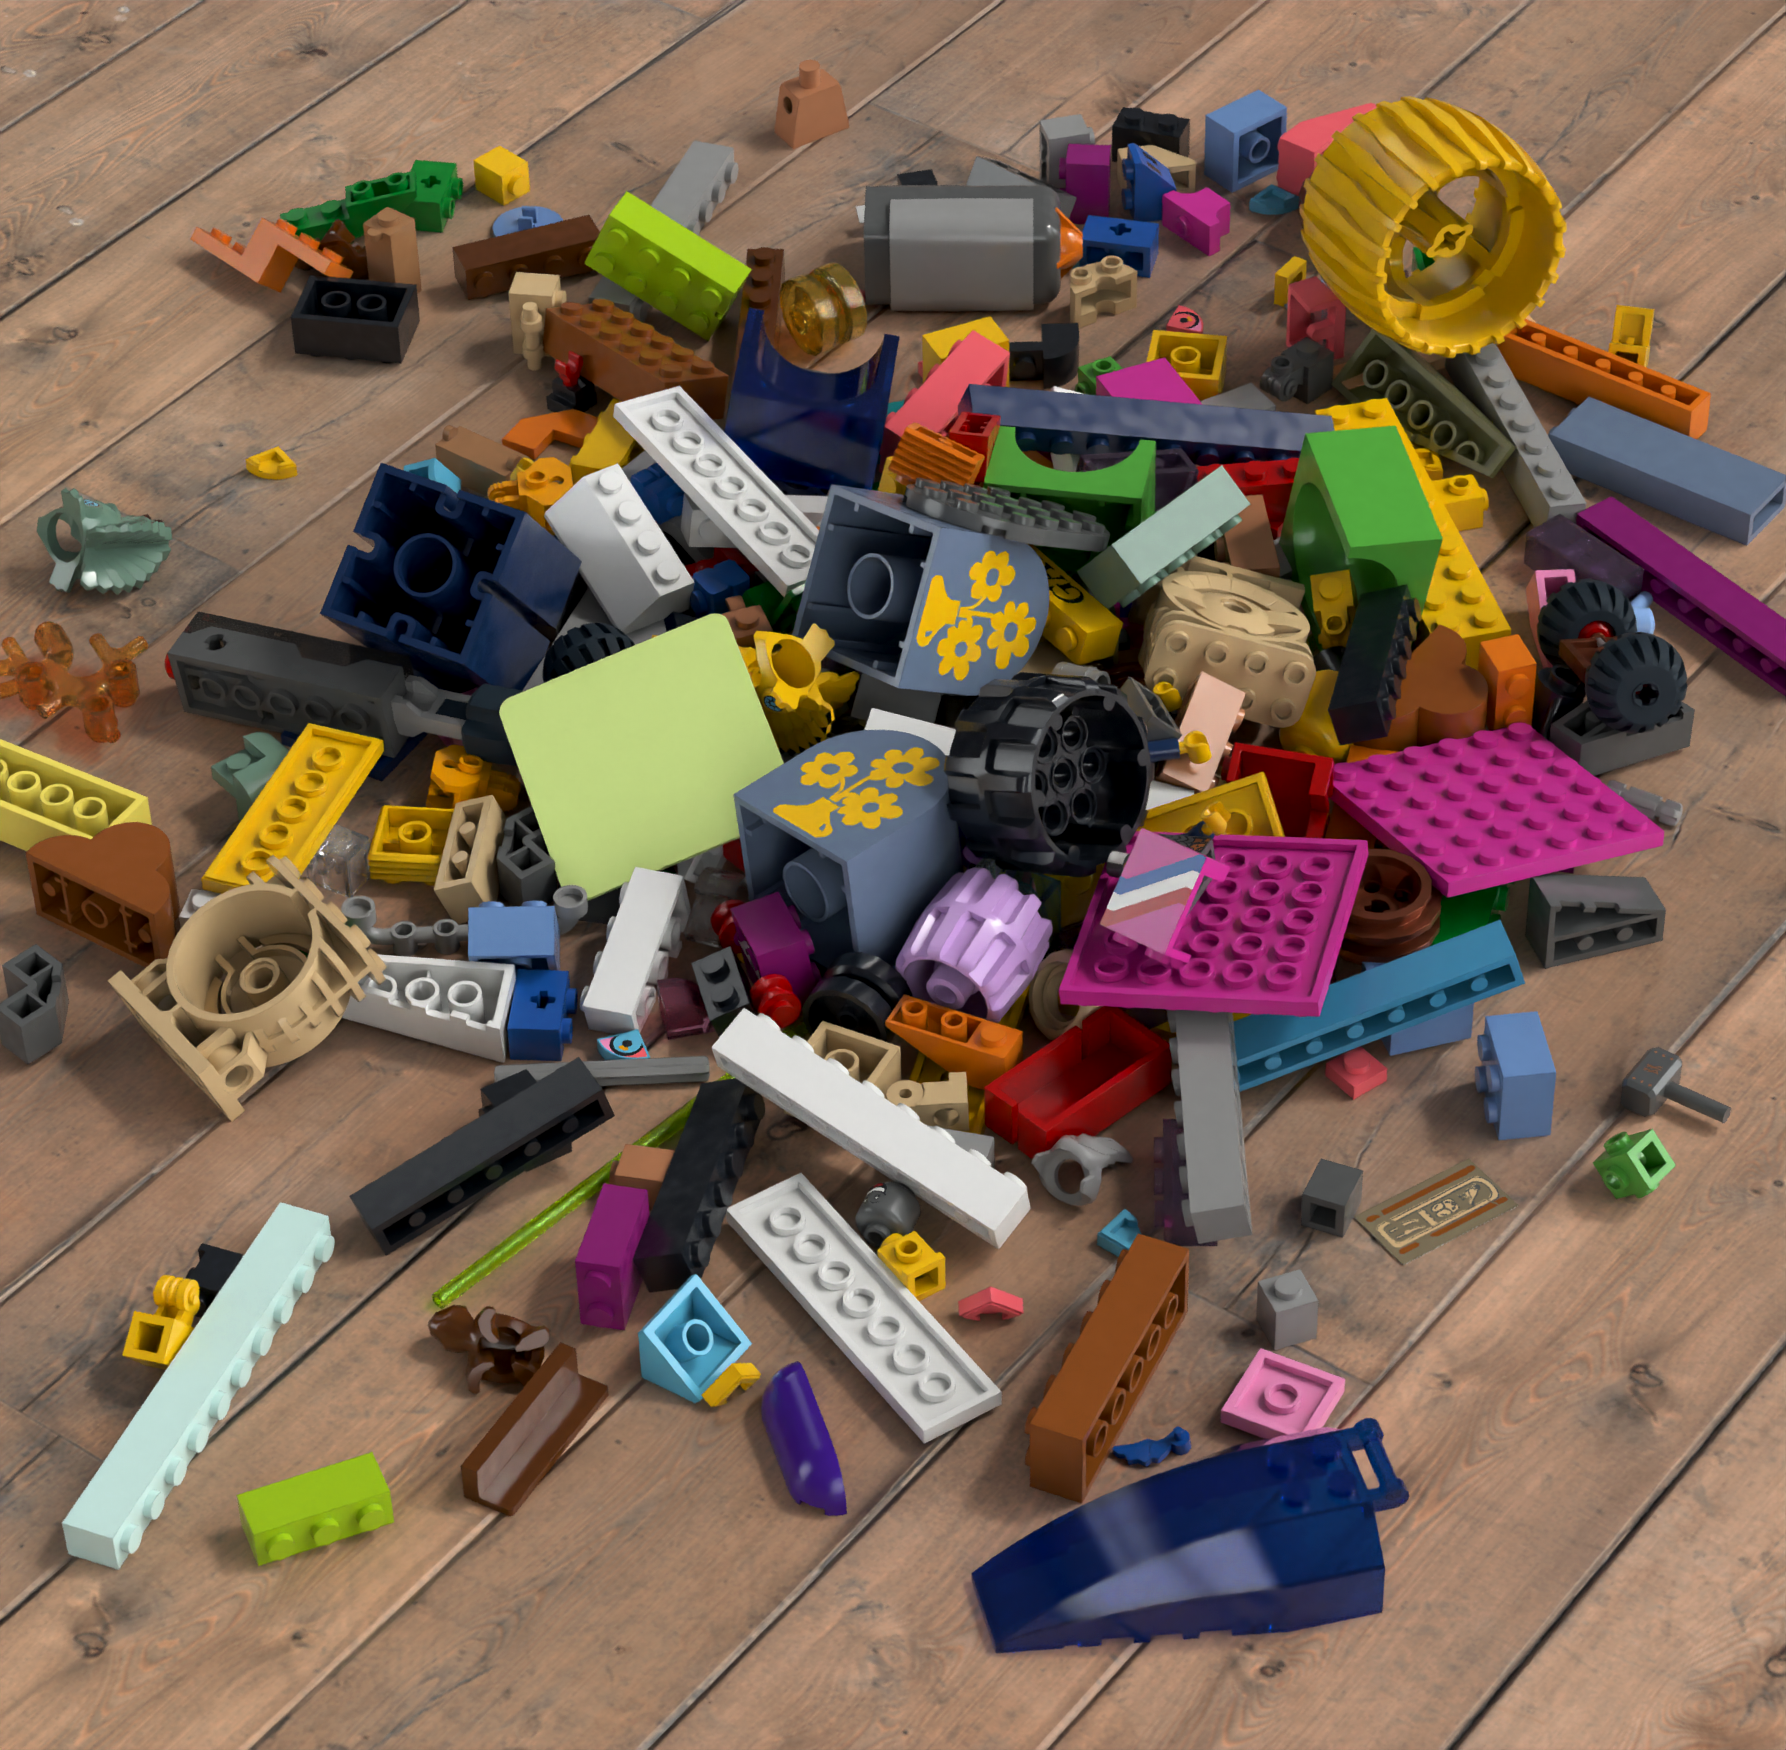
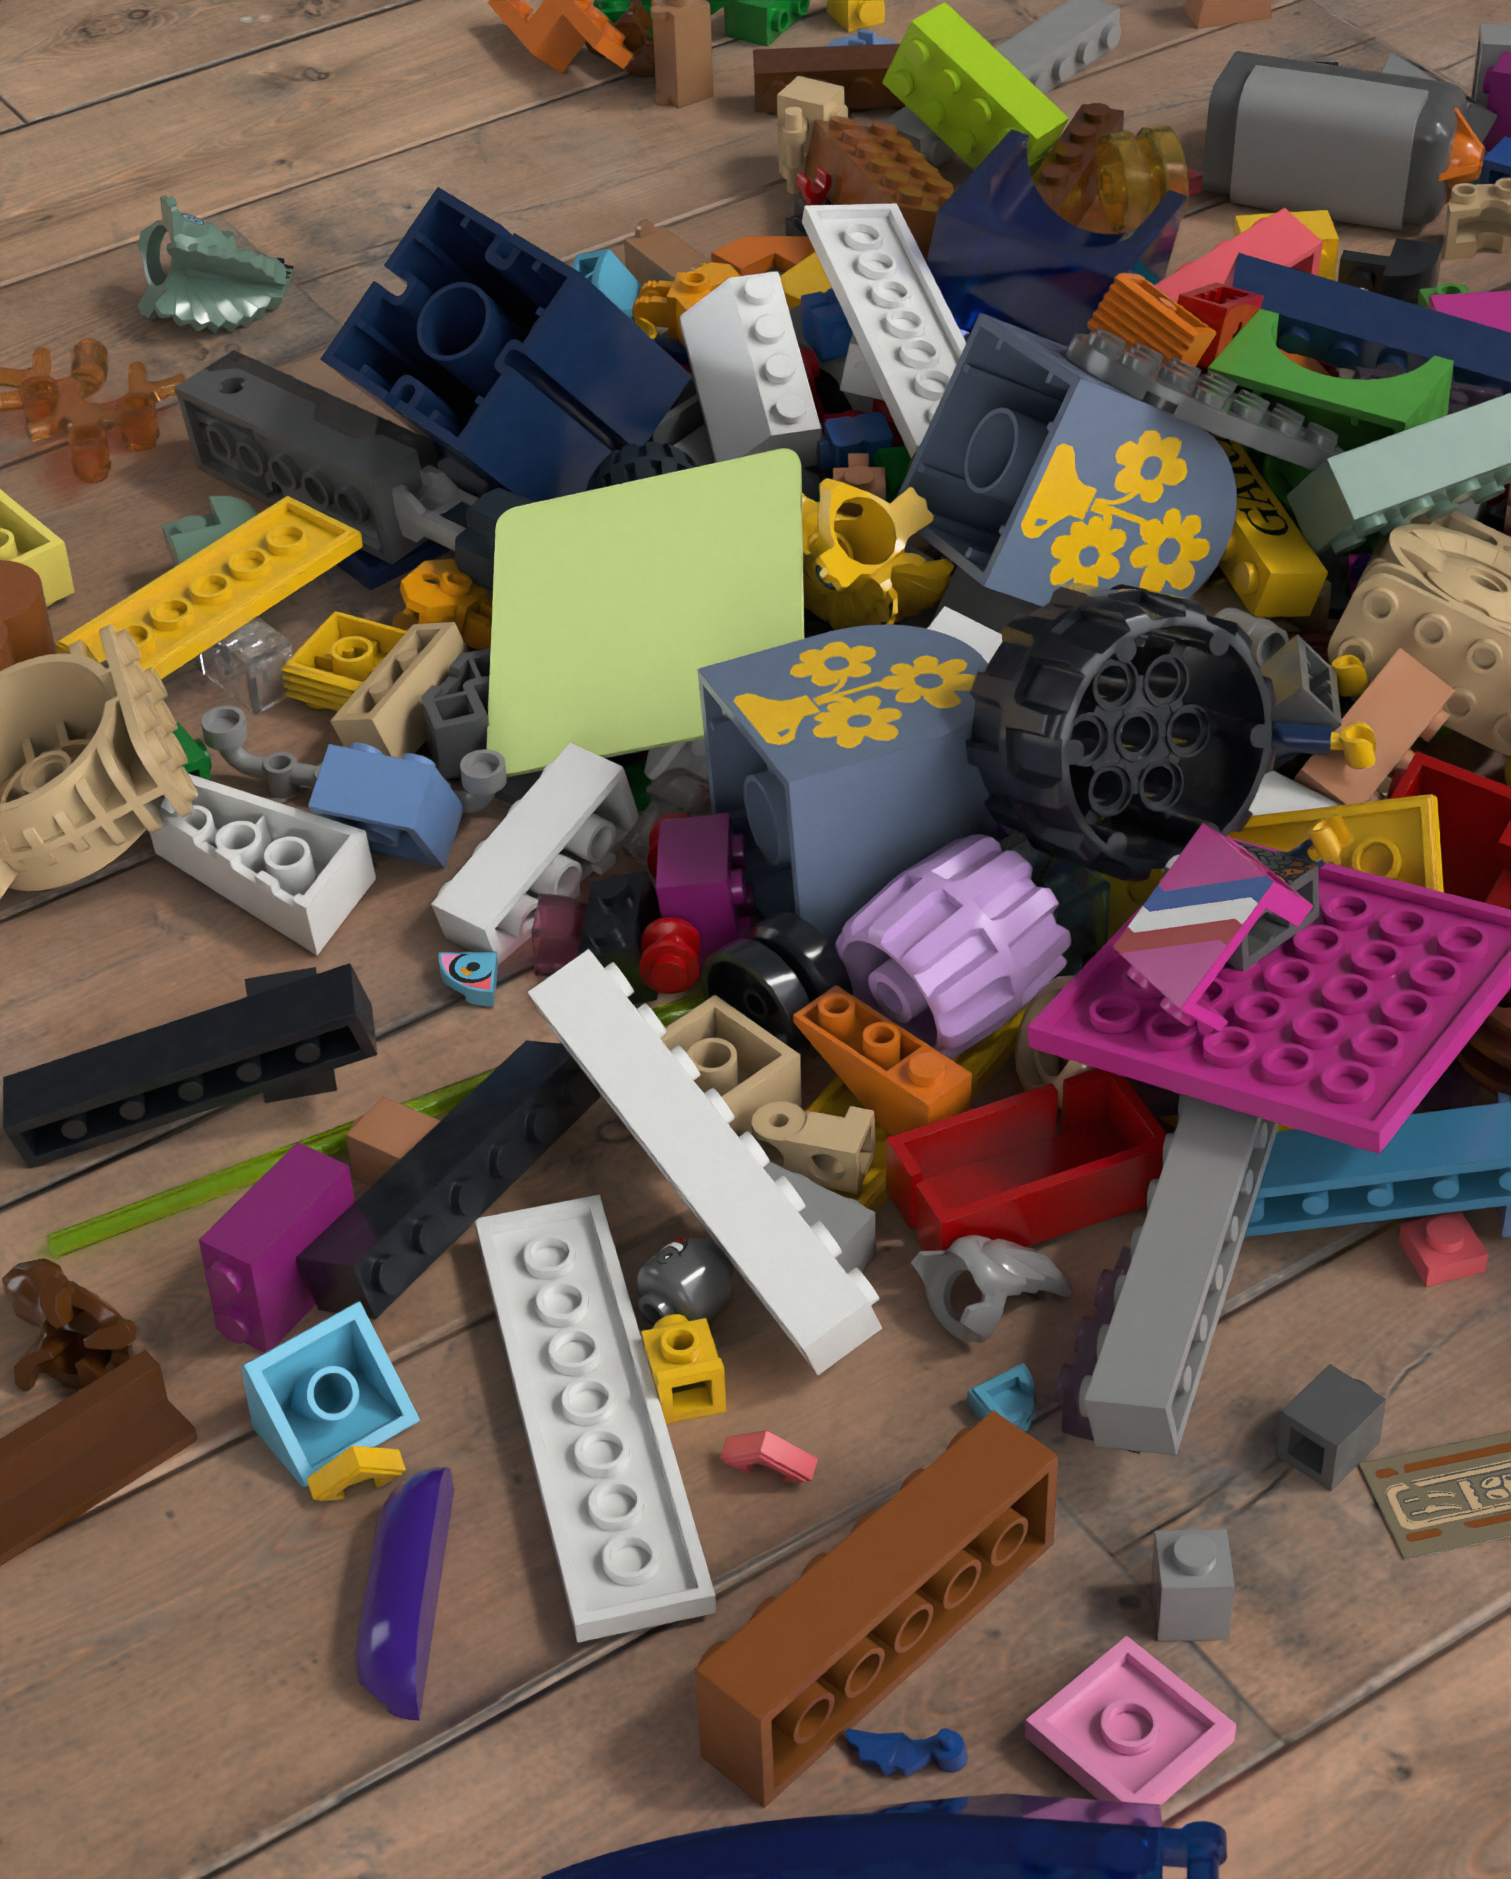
camera: 20 degrees right, 0 degrees up
(355, 319) = (613, 104): black brick -> none
(540, 1015) = (382, 905): blue brick -> none
(625, 1070) = (443, 1000): light grey axle -> none

